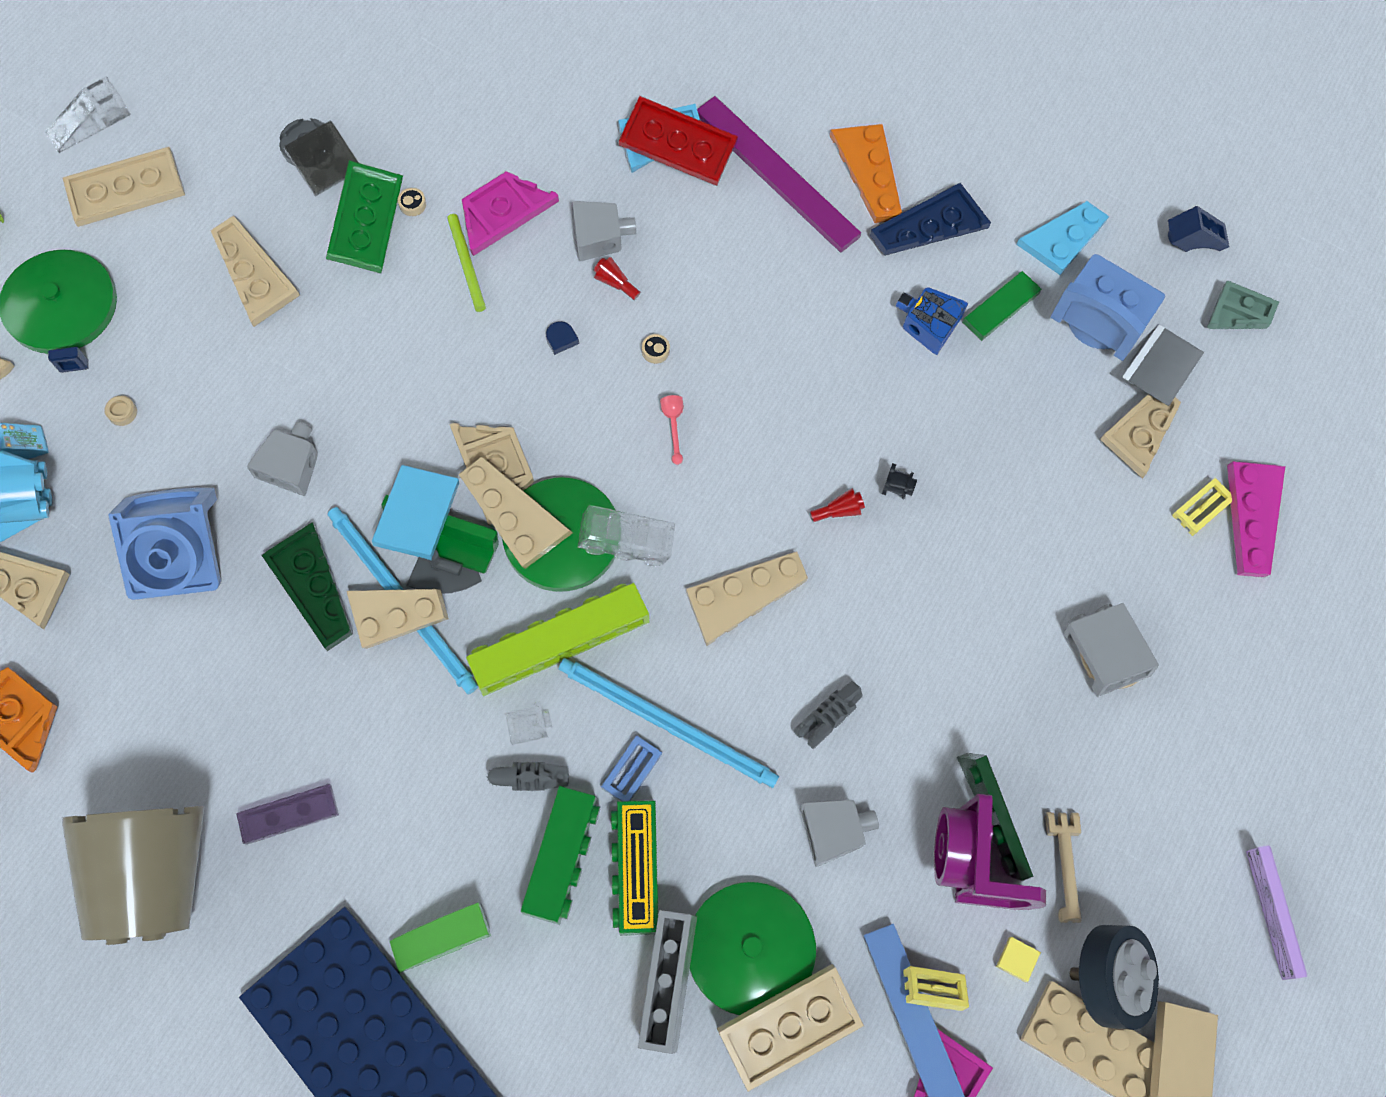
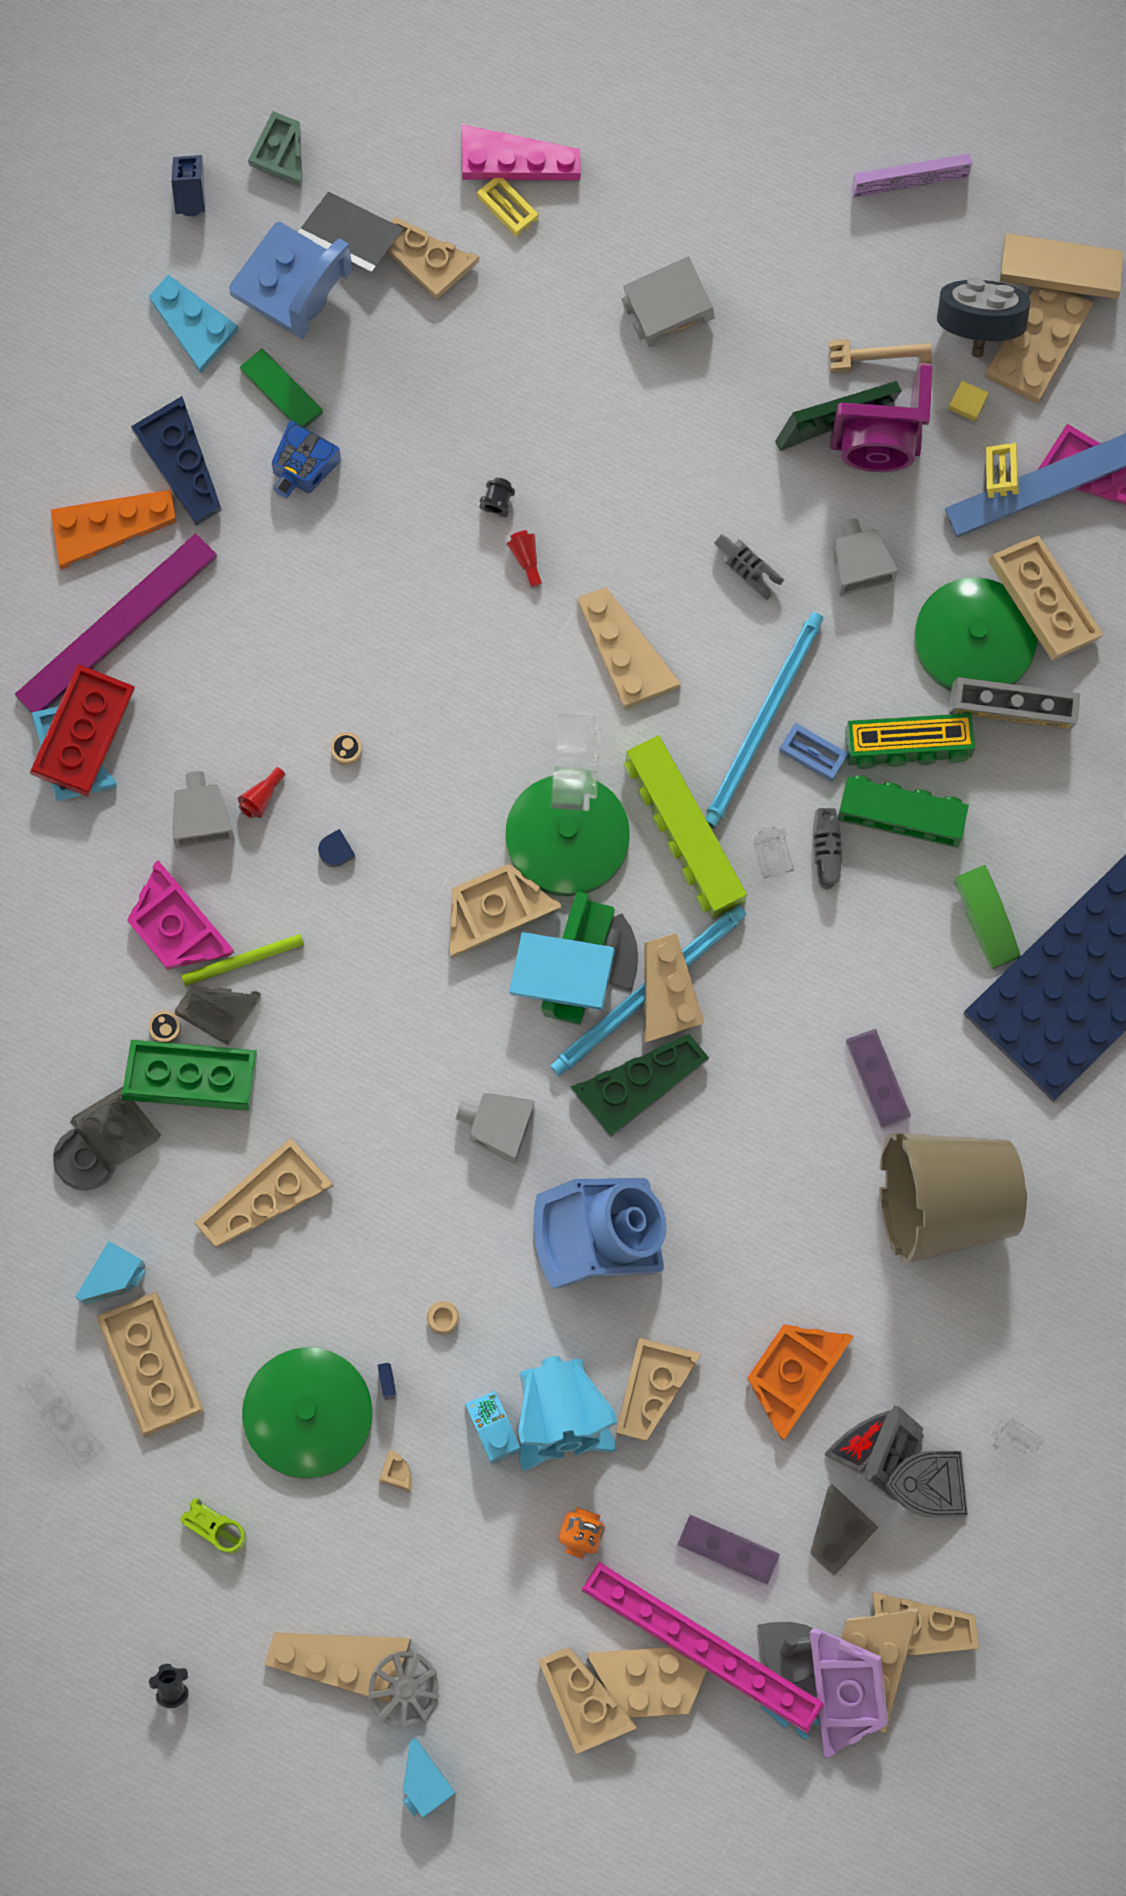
camera: 90 degrees left, 5 degrees up
(201, 156) = (111, 1275): none -> medium azure slope
(420, 239) = (217, 1010): none -> clear smoke wing
(515, 515) = (560, 871): tan wing -> none
(672, 408) = (420, 726): coral hinge -> none

